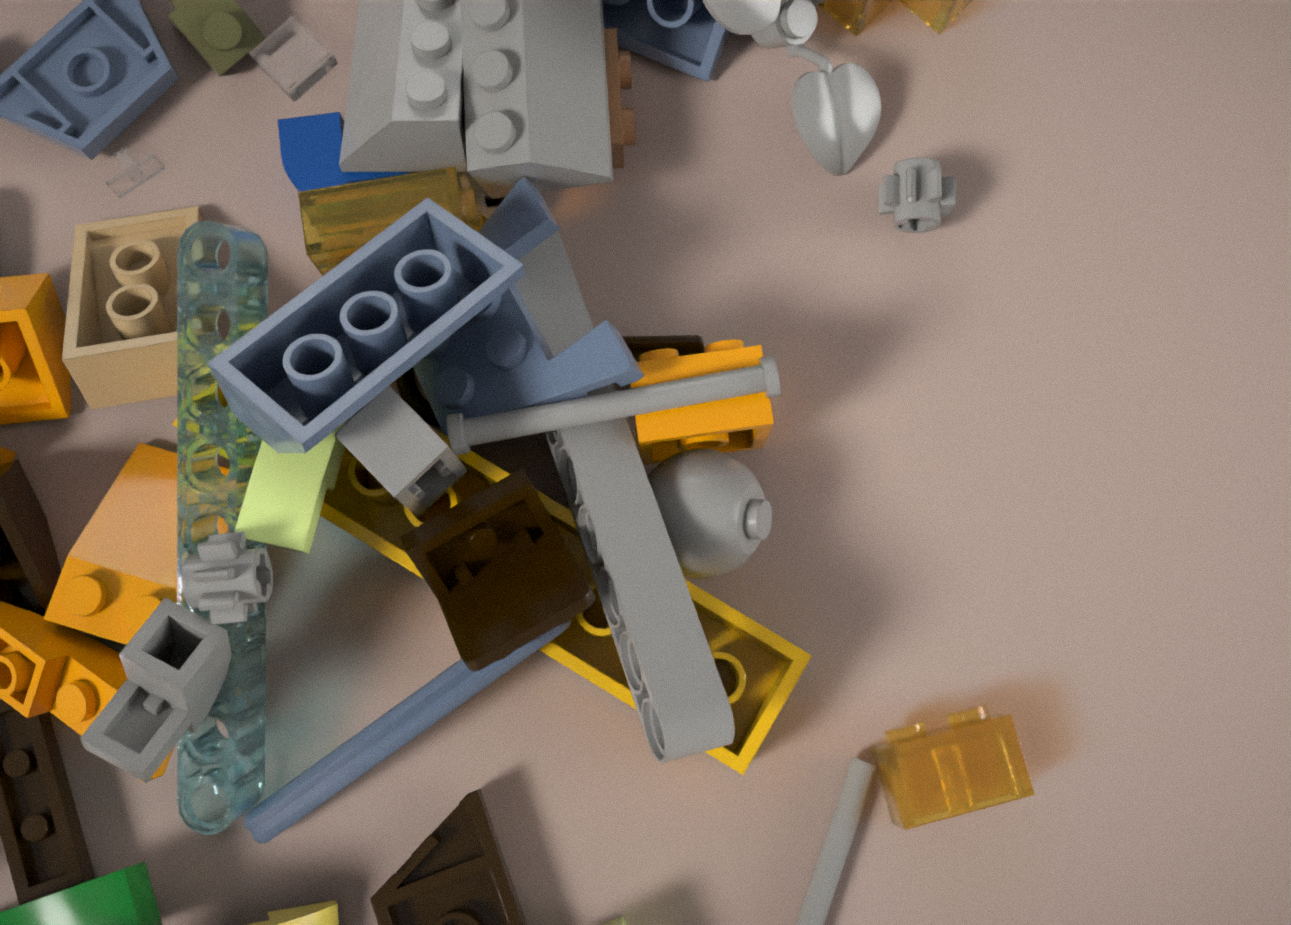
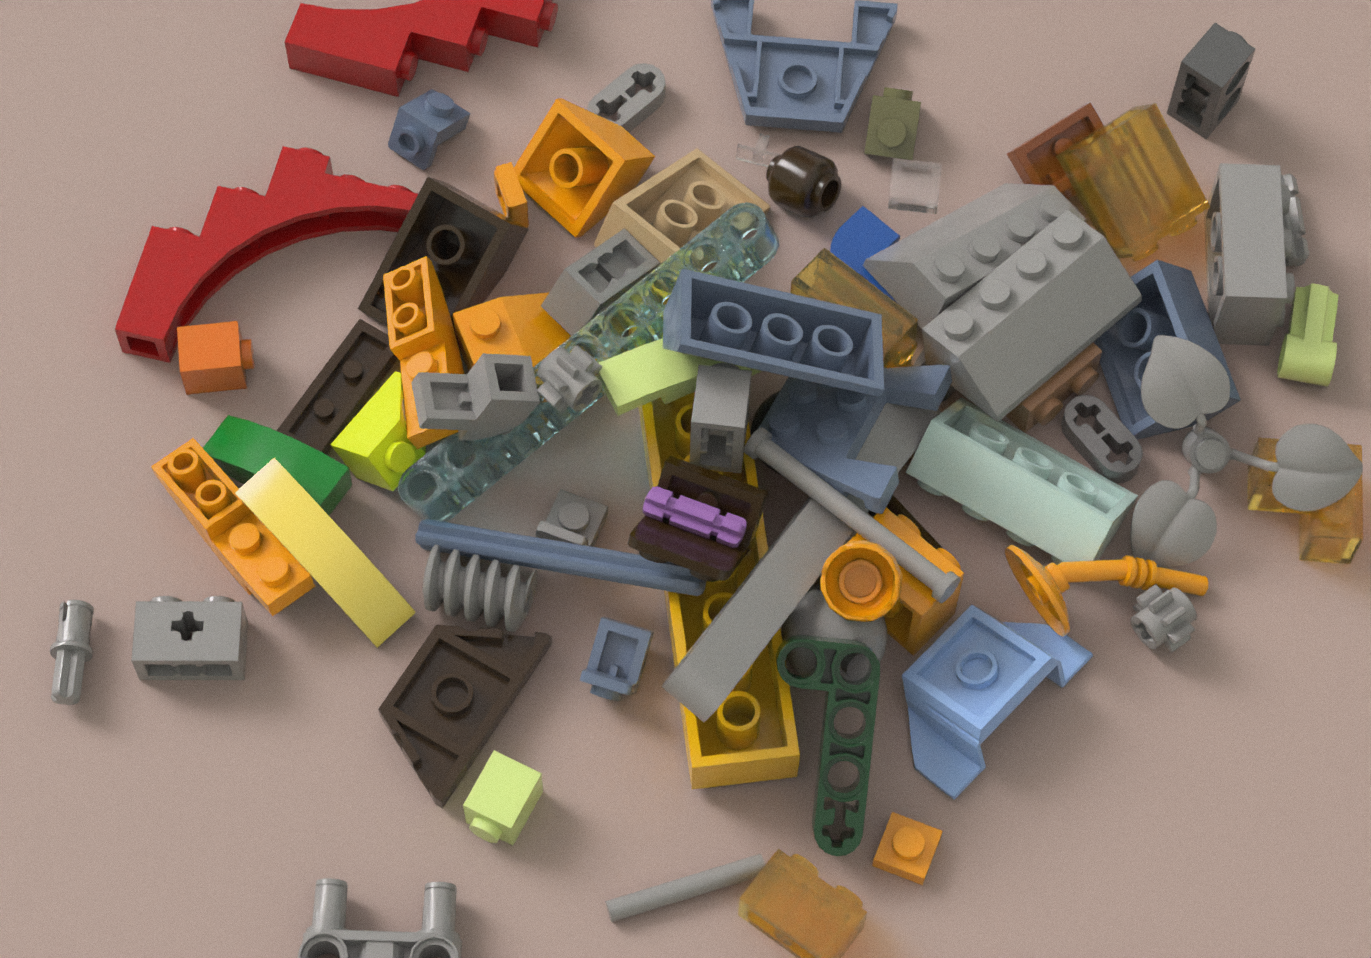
camera: 50 degrees right, 15 degrees down
(113, 806) = (377, 440): none -> neon yellow slope
(137, 442) = (598, 281): none -> light grey brick
(200, 154) = (803, 181): none -> dark brown head
(366, 829) = (477, 590): none -> light grey piece
(373, 671) = (573, 520): none -> light grey bracket
(487, 566) = (694, 517): none -> medium lavender axle
(552, 743) = (617, 659): none -> sand blue bracket
(686, 212) = (1019, 484): none -> light aqua slope
(690, 103) = (1107, 435): none -> flat silver beam
(700, 455) = (861, 581): none -> light orange hair
(811, 268) = (1047, 583): none -> light orange dish
(828, 609) = (833, 744): none -> dark green beam
(852, 419) = (973, 684): none -> light blue piece
(952, 612) = (907, 848): none -> light orange plate

